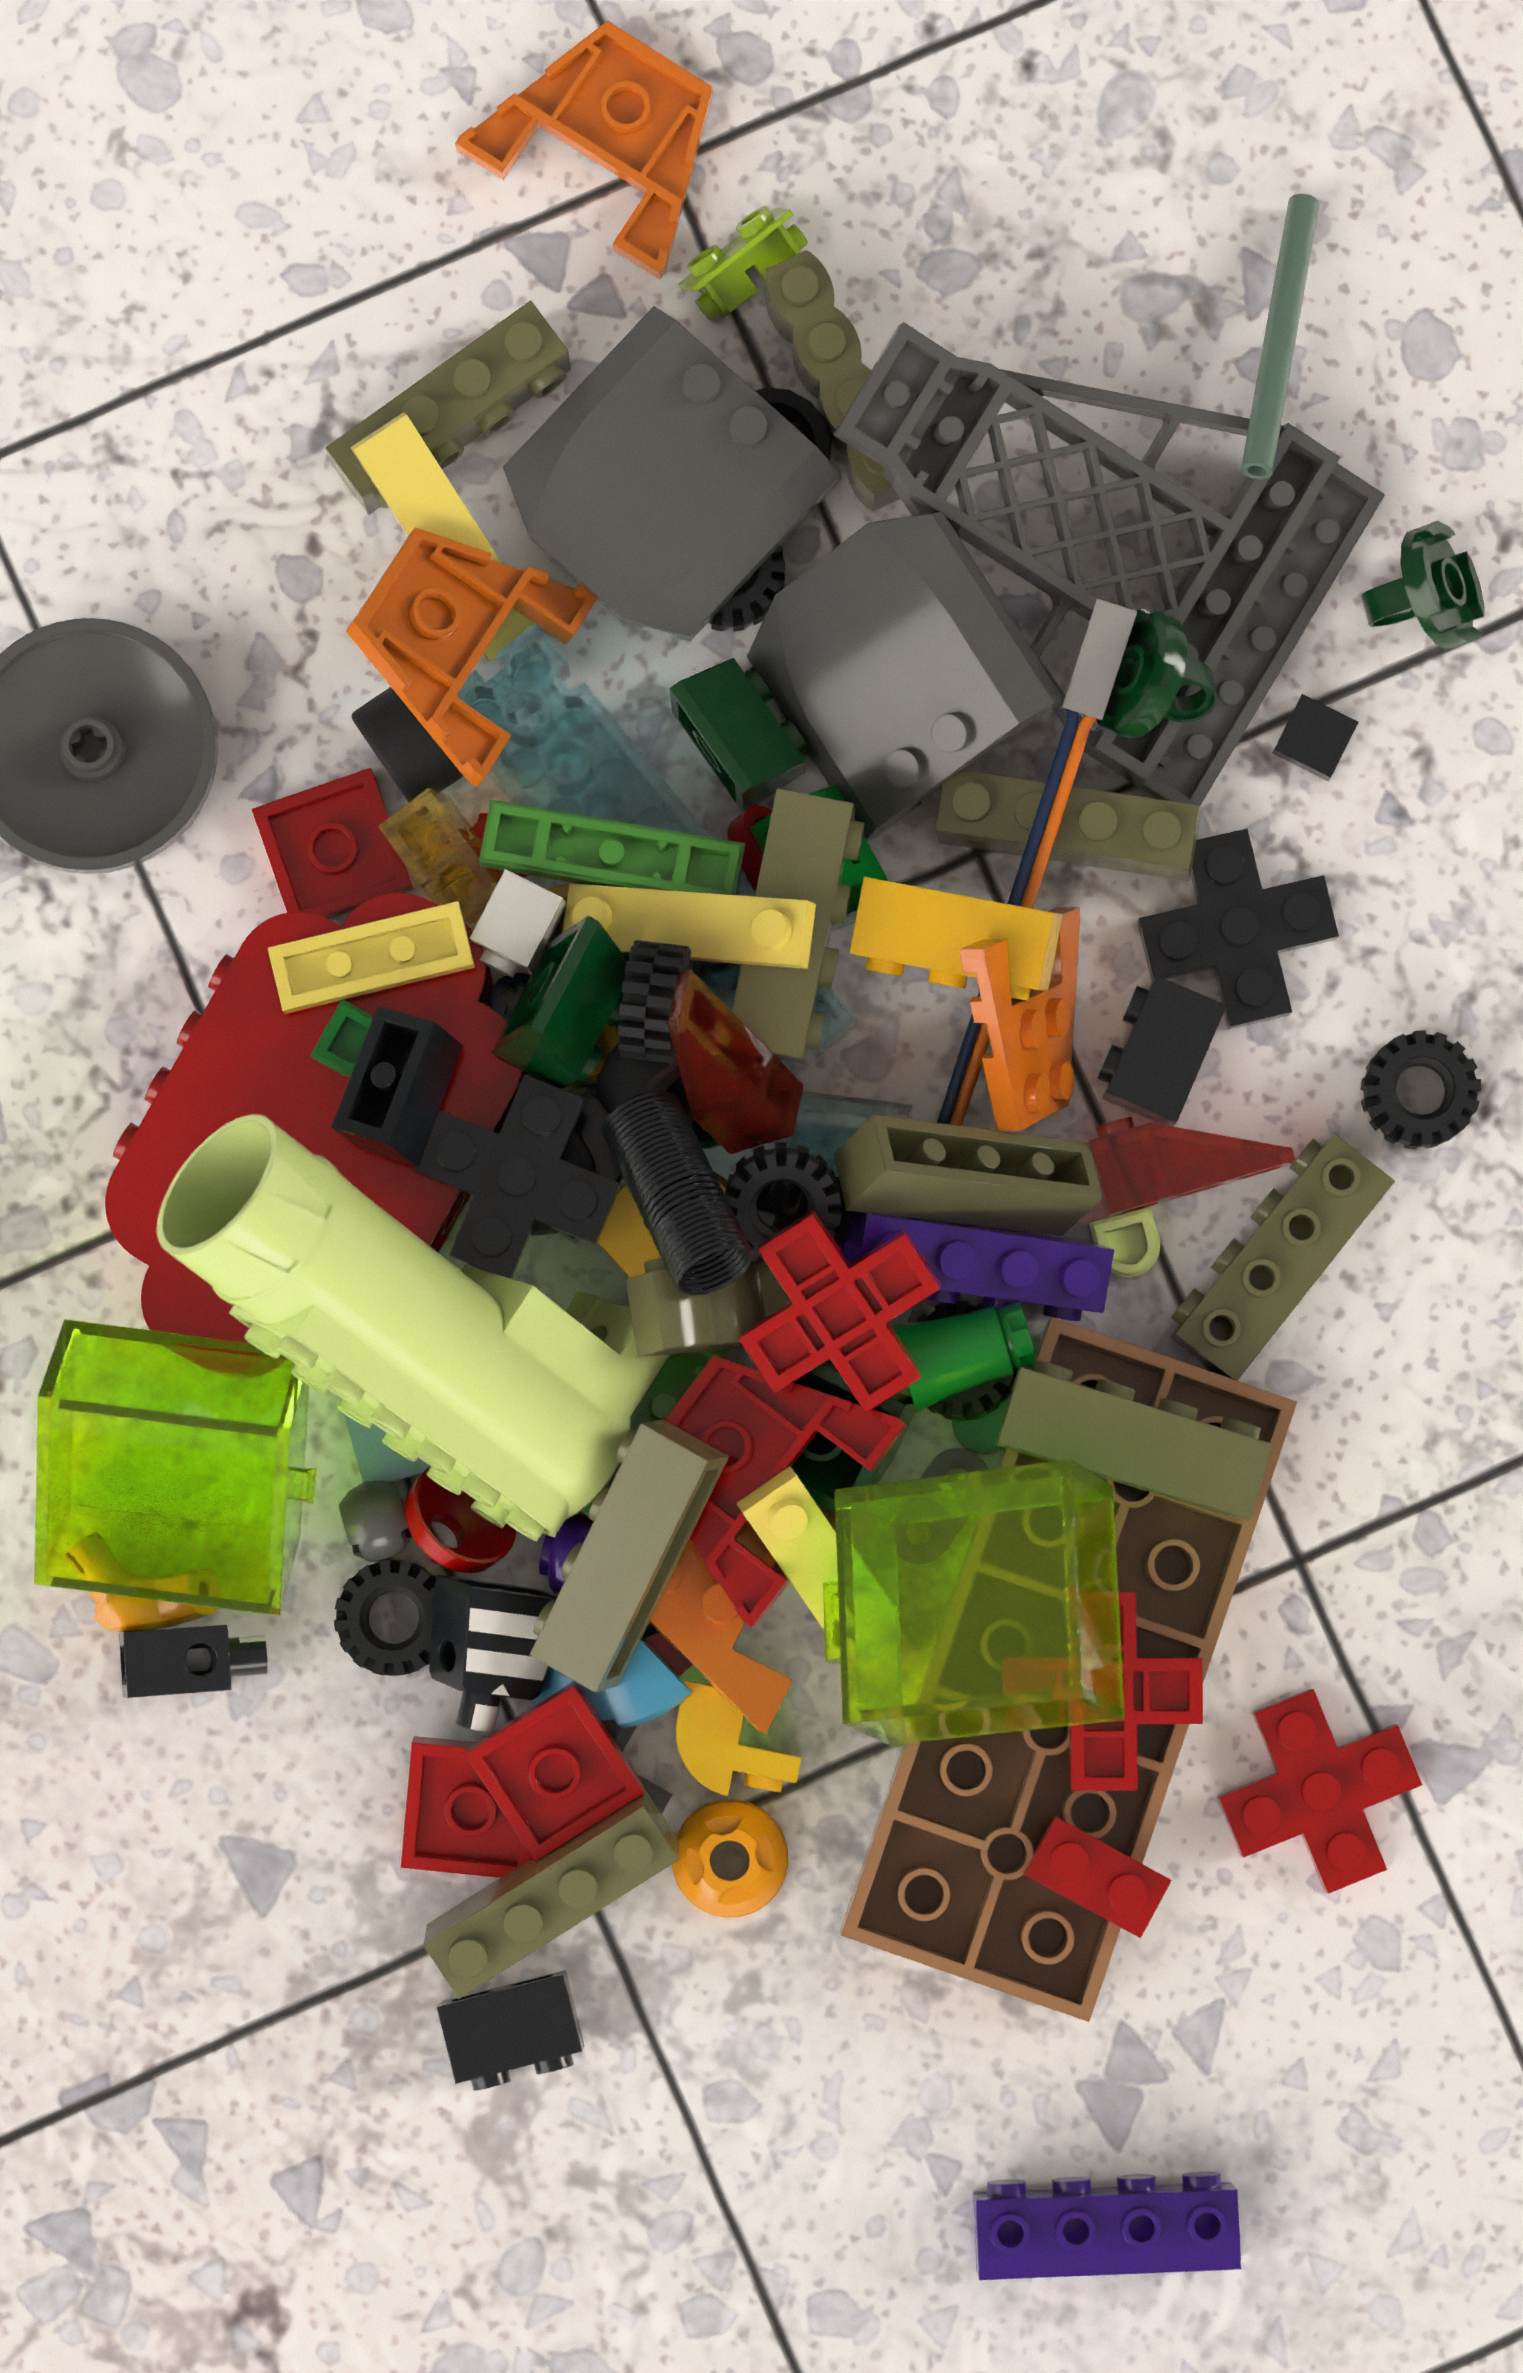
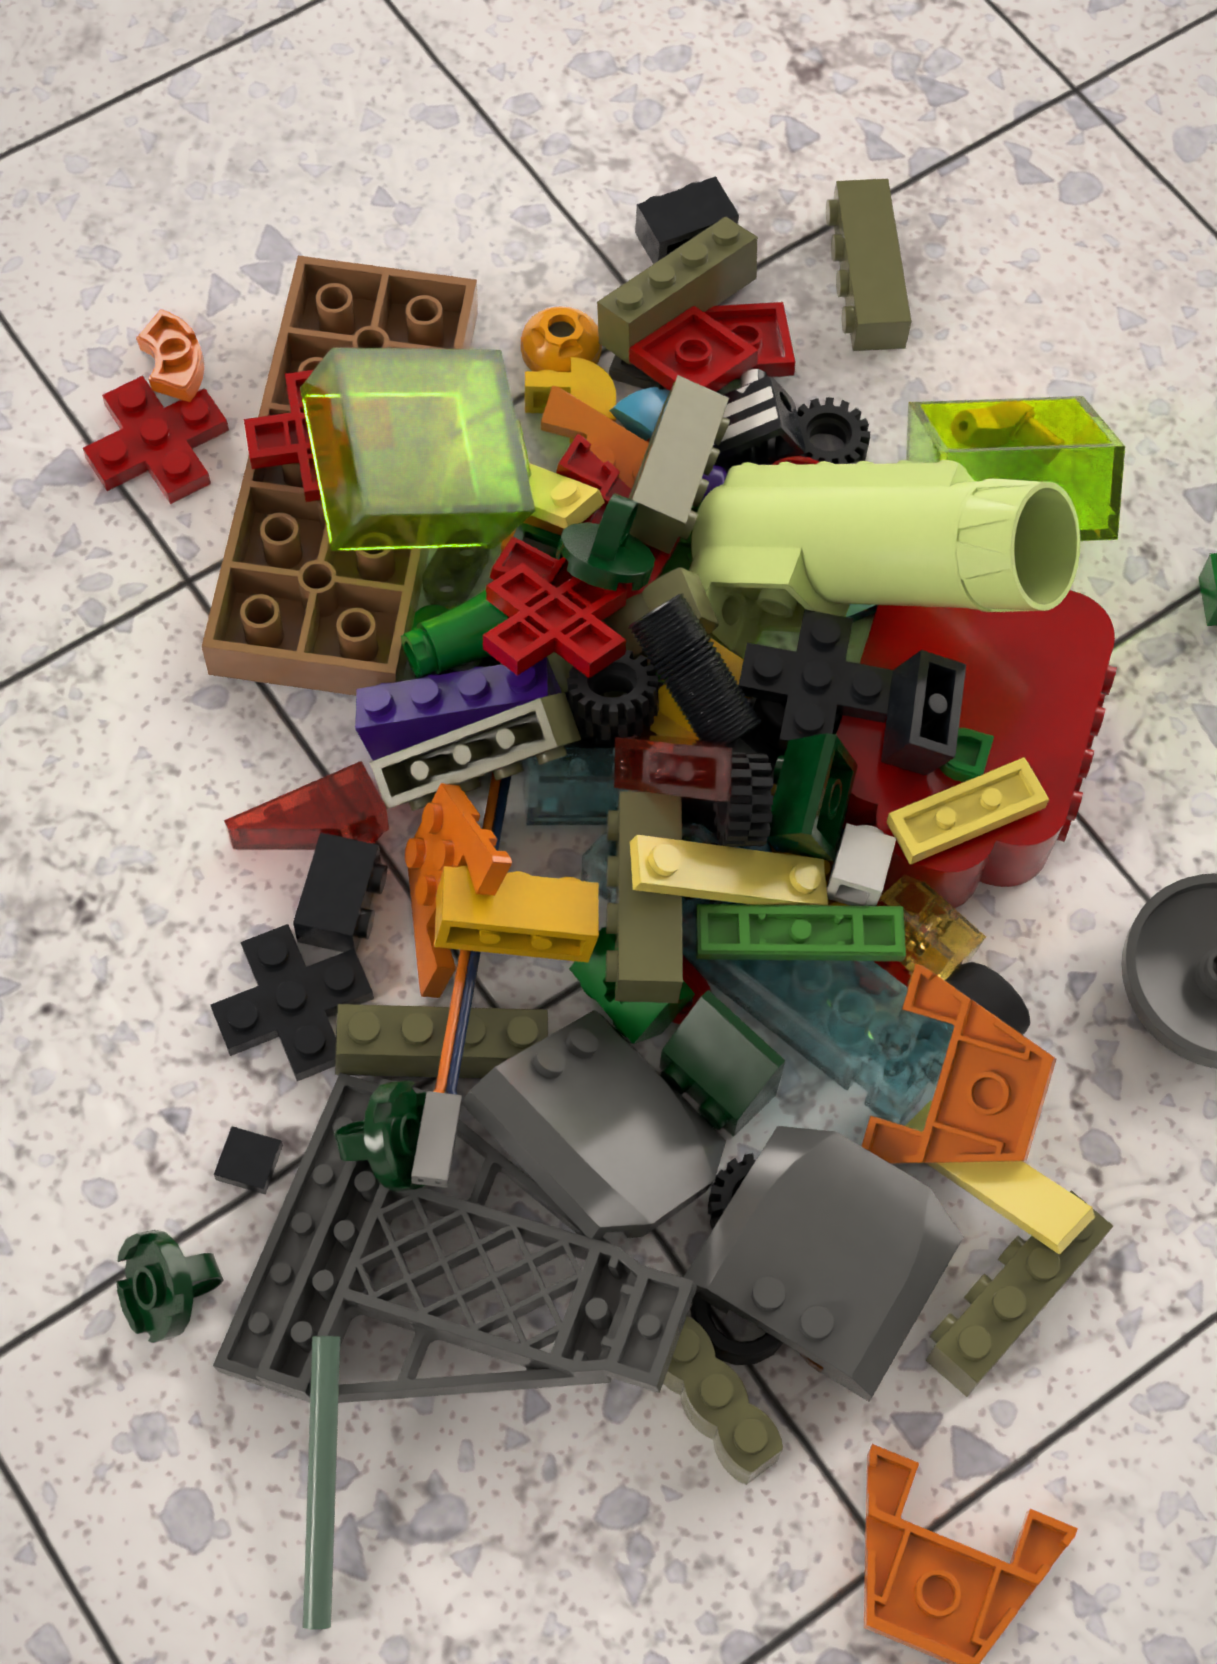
camera: 165 degrees right, 20 degrees down
(156, 1660) = (968, 373): black torso -> none
(261, 1908) = (869, 265): none -> olive brick
(330, 846) = (1023, 937): red tile -> none
(722, 272) = (821, 1458): lime hinge -> none
(755, 1400) = (606, 551): none -> dark green tile
(1097, 1877) = (302, 329): red plate -> none
(1106, 2228) = (268, 173): dark purple brick -> none
(1133, 1241) = (344, 752): yellowish green tile -> none
(1134, 1442) = (319, 586): olive brick -> none
(1276, 1916) = (176, 356): none -> orange tile
(1281, 1258) = (226, 764): olive brick -> none
(1448, 1062) = (122, 876): black tyre -> none

